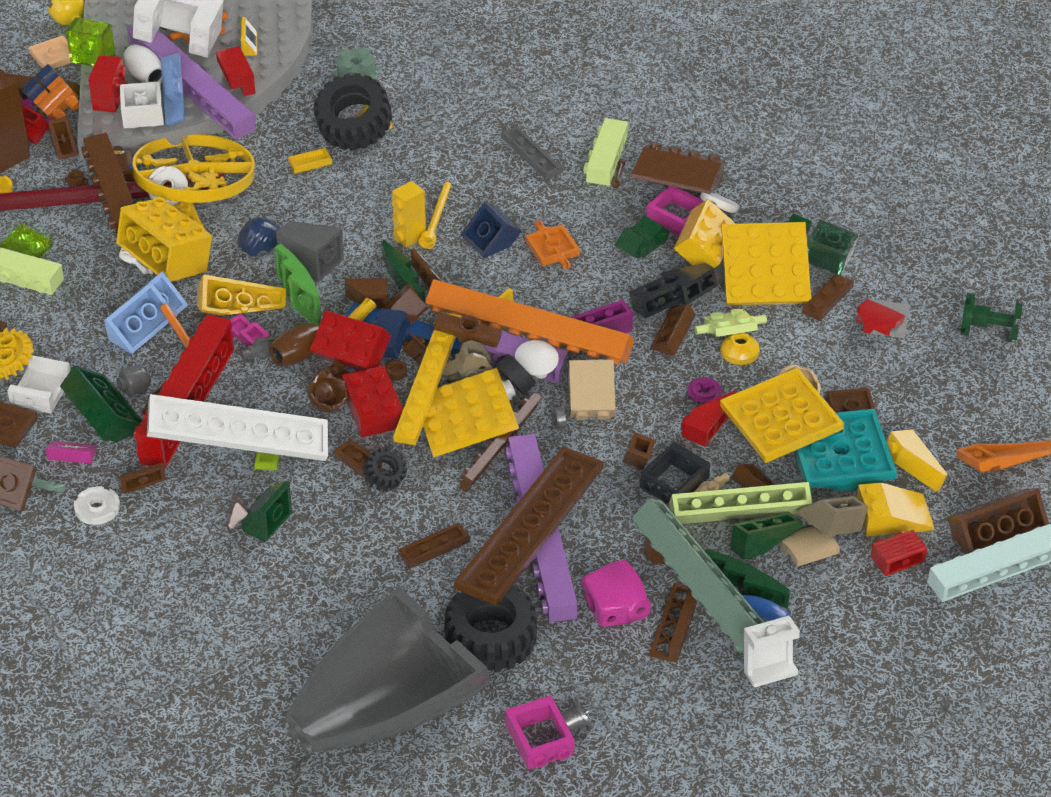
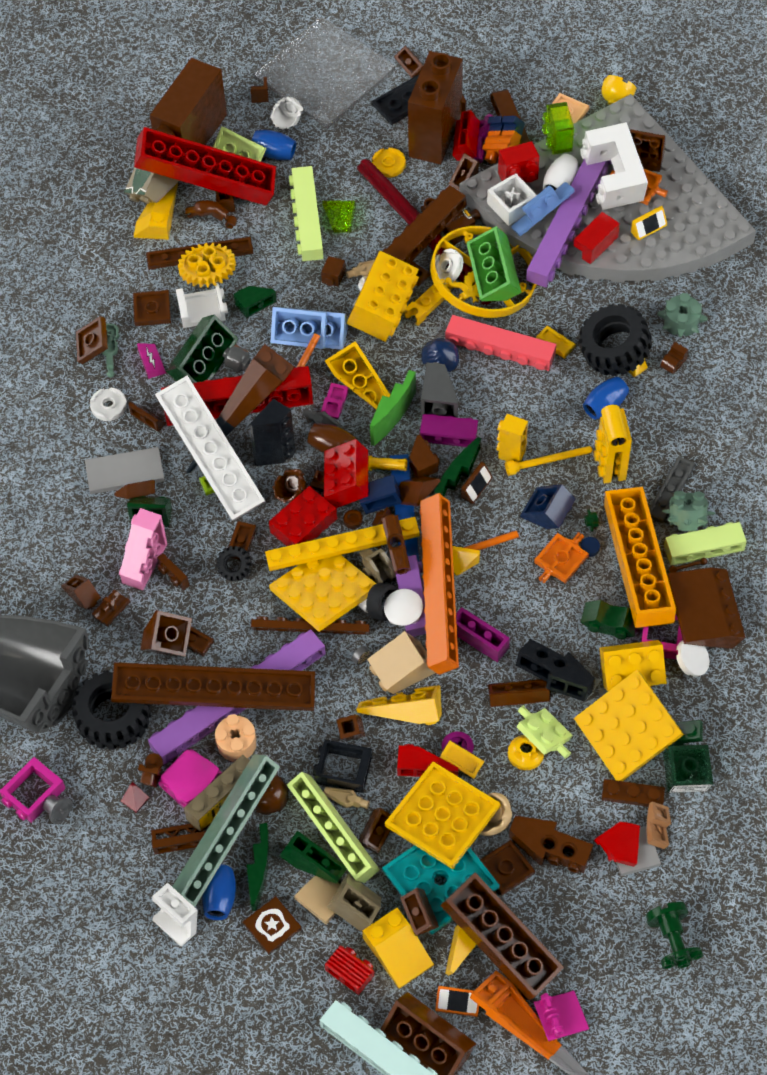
camera: 65 degrees right, 15 degrees up
(70, 342) = (254, 299): none -> dark green slope
(91, 272) = (333, 271): none -> reddish brown brick
(106, 251) = (362, 269): none -> tan piece
(193, 522) = (118, 470): none -> light grey tile
(200, 354) = (260, 379): none -> reddish brown plate
(201, 150) = (493, 266): none -> bright green slope
(268, 365) = (272, 435): none -> black slope
(282, 191) = (501, 343): none -> coral brick
(316, 526) = (144, 545): none -> bright pink brick
(321, 605) = (81, 591): none -> reddish brown slope
(352, 262) = (448, 430): none -> magenta brick
(355, 523) = (176, 576): none -> reddish brown plate
(364, 587) = (110, 608): none -> reddish brown hips
(396, 93) = (674, 358): none -> reddish brown leg
(405, 148) = (607, 393): none -> blue piece
(432, 551) = (167, 634): none -> reddish brown slope
(474, 148) = (613, 444): none -> yellow hinge
(498, 279) = (494, 541): none -> orange bar
(527, 210) = (591, 520): none -> dark green plate
(552, 221) = (591, 546): none -> dark blue tile
(570, 142) = (688, 510): none -> sand green brick
(588, 620) = (152, 770): none -> reddish brown hips
(590, 542) = (235, 737): none -> light nougat brick
(597, 187) = (639, 557): none -> light orange brick
(601, 653) = (134, 798): none -> slope
(642, 399) = (418, 707): none -> yellow wedge
(658, 589) = (206, 805): none -> dark tan brick
(721, 386) = (461, 758): none -> yellow tile
(814, 596) = (272, 925): none -> reddish brown tile
(850, 366) = (534, 833): none -> reddish brown brick
(867, 289) = (657, 821): none -> medium nougat slope
(872, 471) = (419, 911): none -> reddish brown slope
(933, 420) = (502, 936): none -> reddish brown brick
(971, 490) = (456, 1001): none -> slope
(1024, 426) = (560, 1015): none -> dark pink hinge

